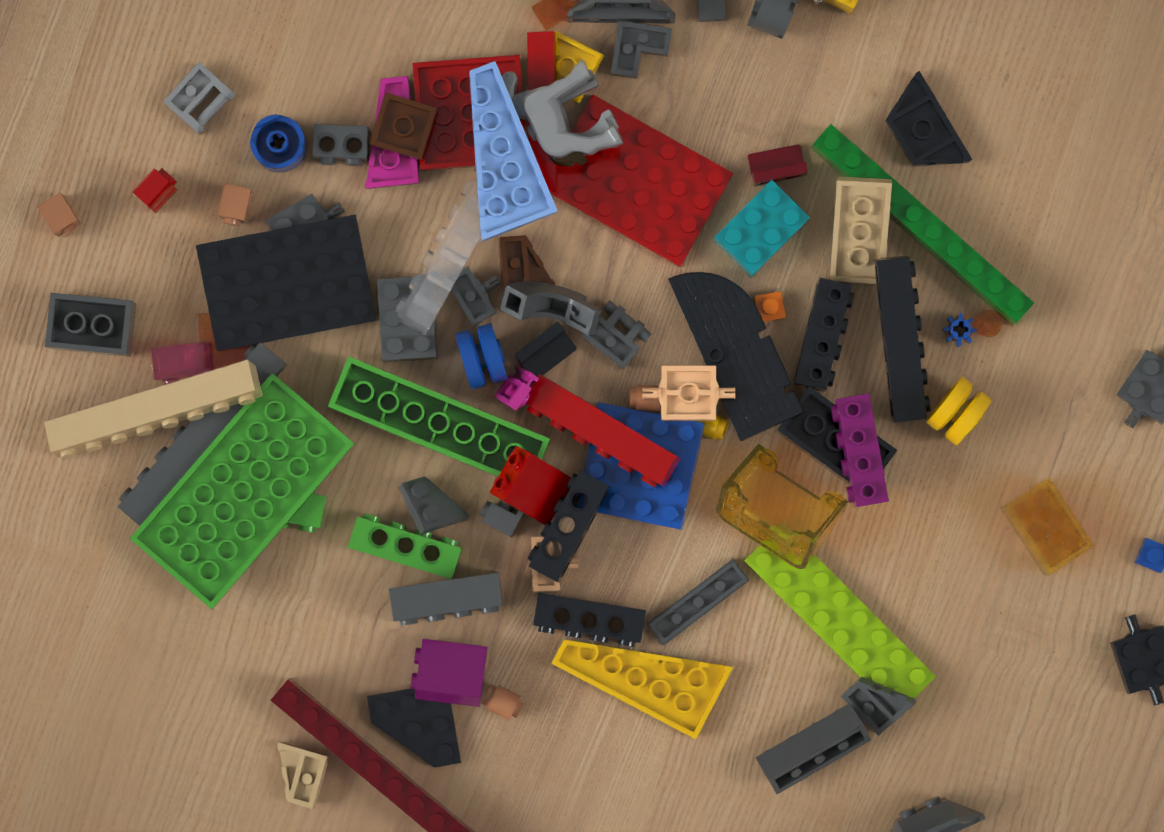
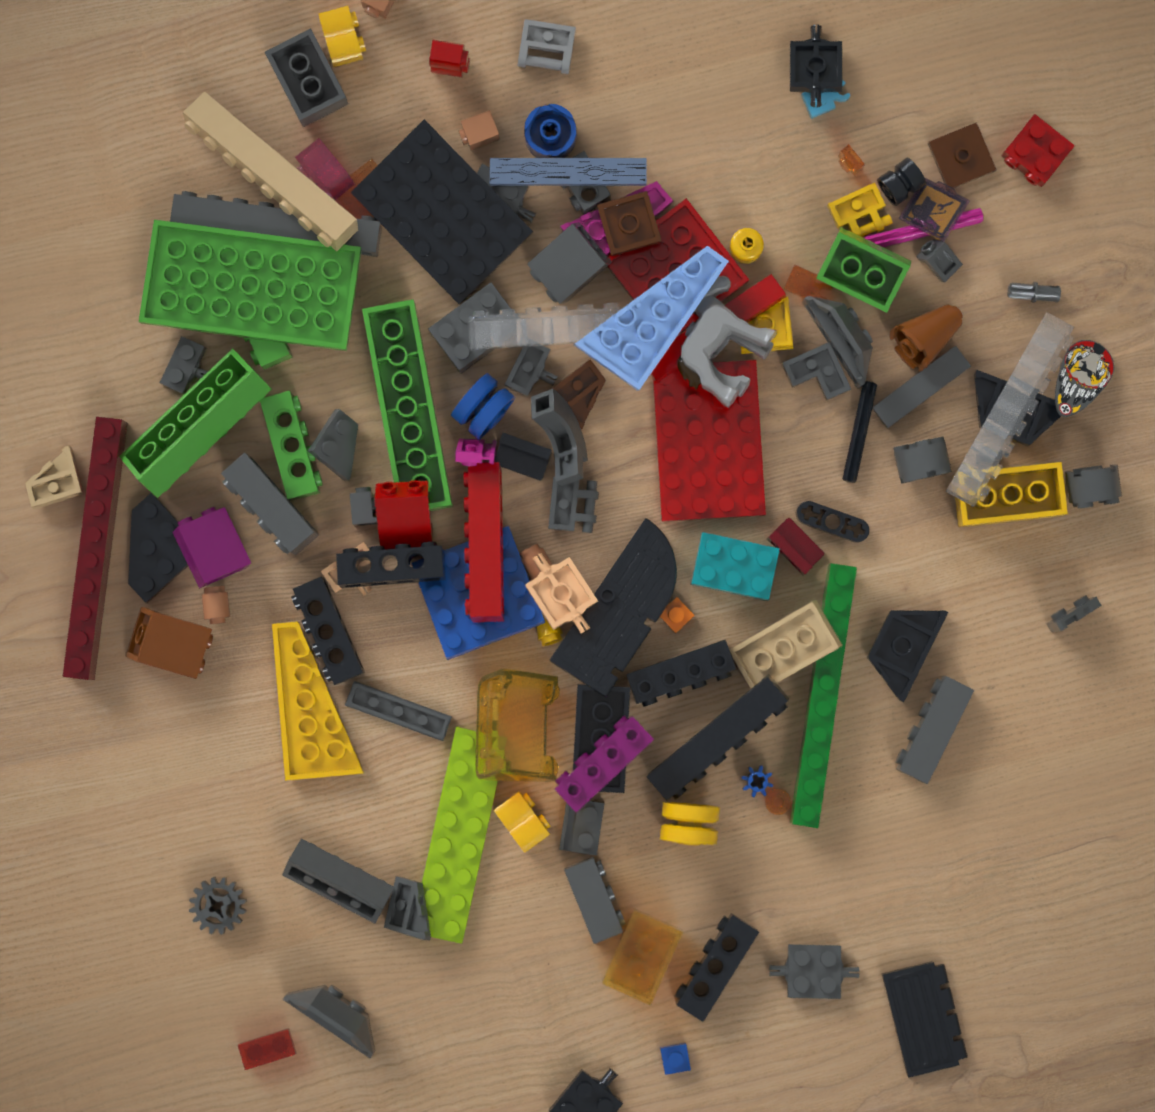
camera: 60 degrees right, 0 degrees up
(72, 271) = (341, 36): none -> yellow brick
(274, 595) = (184, 366): none -> dark grey plate
(324, 150) = (568, 171): none -> sand blue tile
(332, 616) = (195, 423): none -> bright green brick
(404, 201) = (568, 263): none -> dark grey brick
(491, 46) = (741, 252): none -> yellow head
(509, 764) = (169, 643): none -> dark orange slope
(713, 46) = (859, 432): none -> black axle
(796, 113) = (811, 522): none -> black beam
(863, 555) = (522, 822): none -> yellow brick
(904, 510) = (582, 828): none -> dark grey plate
(971, 536) = (595, 899): none -> dark grey brick
(1012, 147) = (934, 729): none -> dark grey brick
(1110, 476) = (701, 1005): none -> black brick

